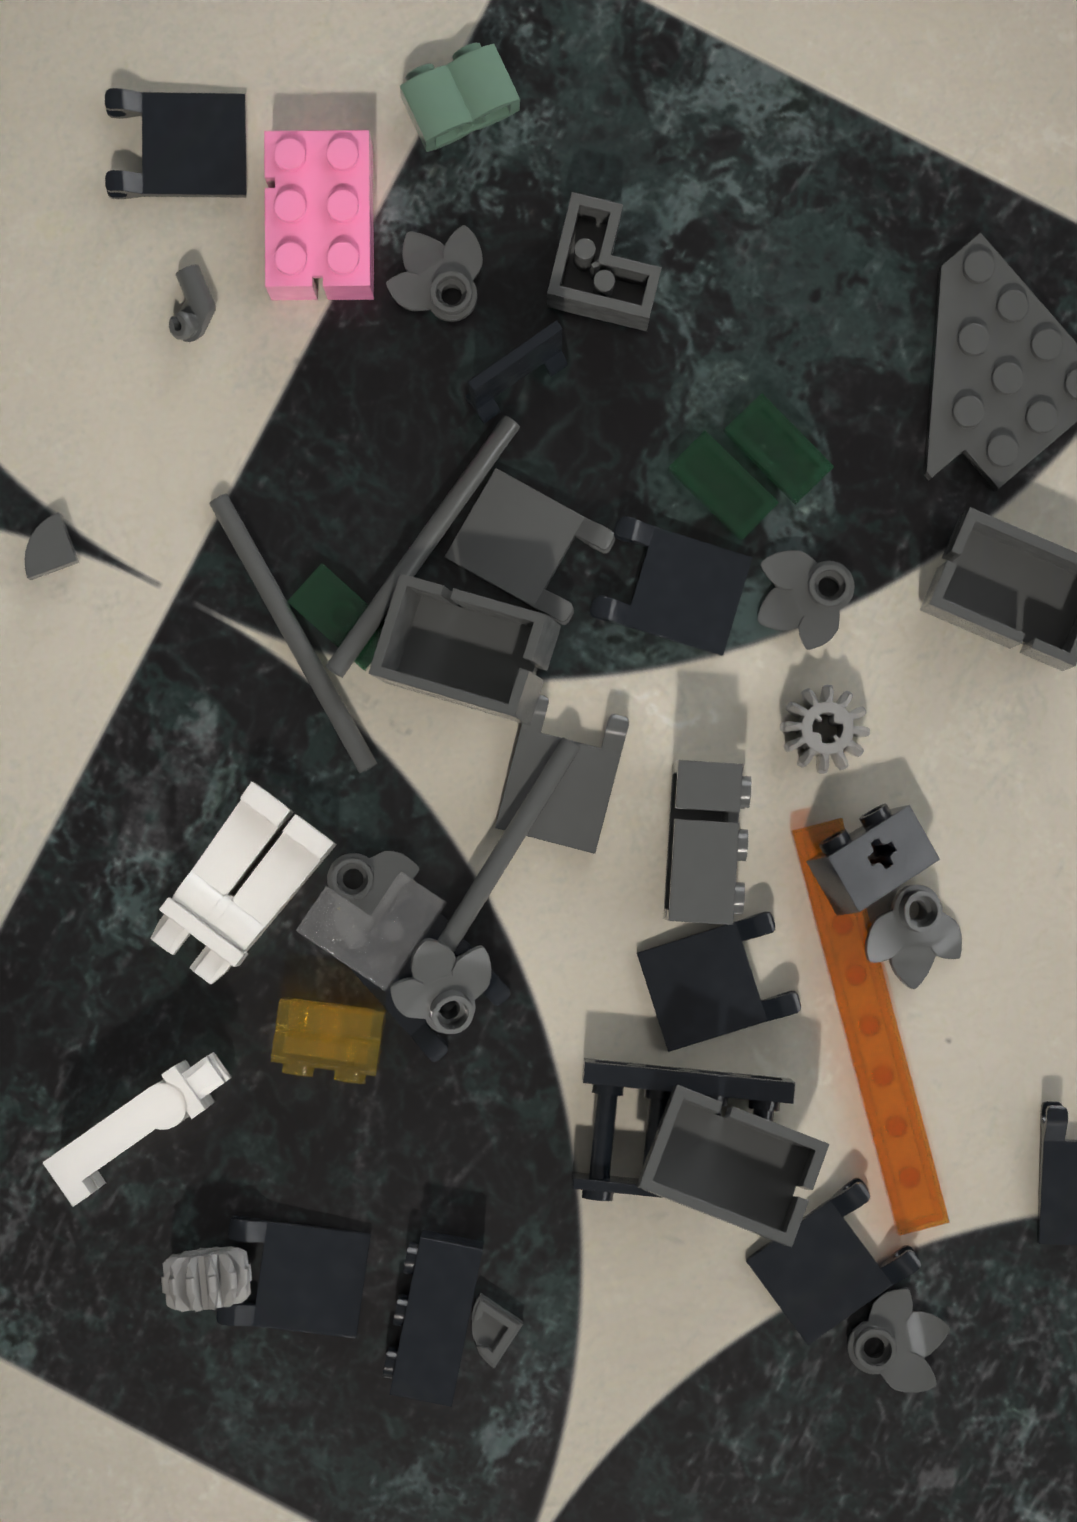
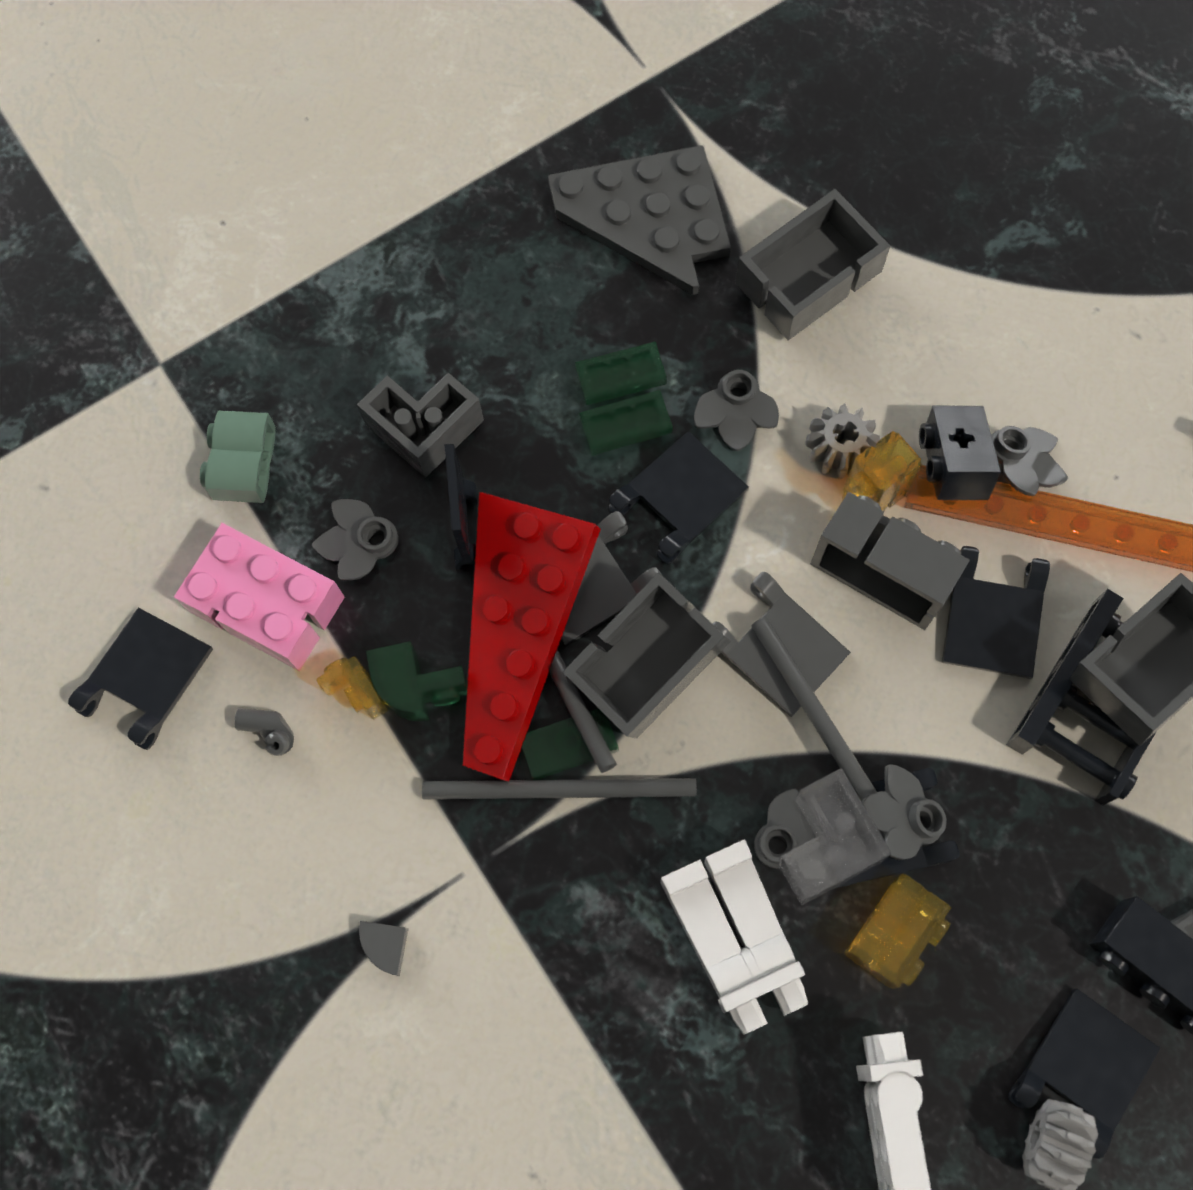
camera: 55 degrees left, 15 degrees down
(281, 378) = (361, 690): none -> clear yellow bracket
(305, 417) = (403, 688): none -> clear green brick
(463, 488) = (522, 598): none -> red wing
(792, 788) = (884, 471): none -> clear yellow brick

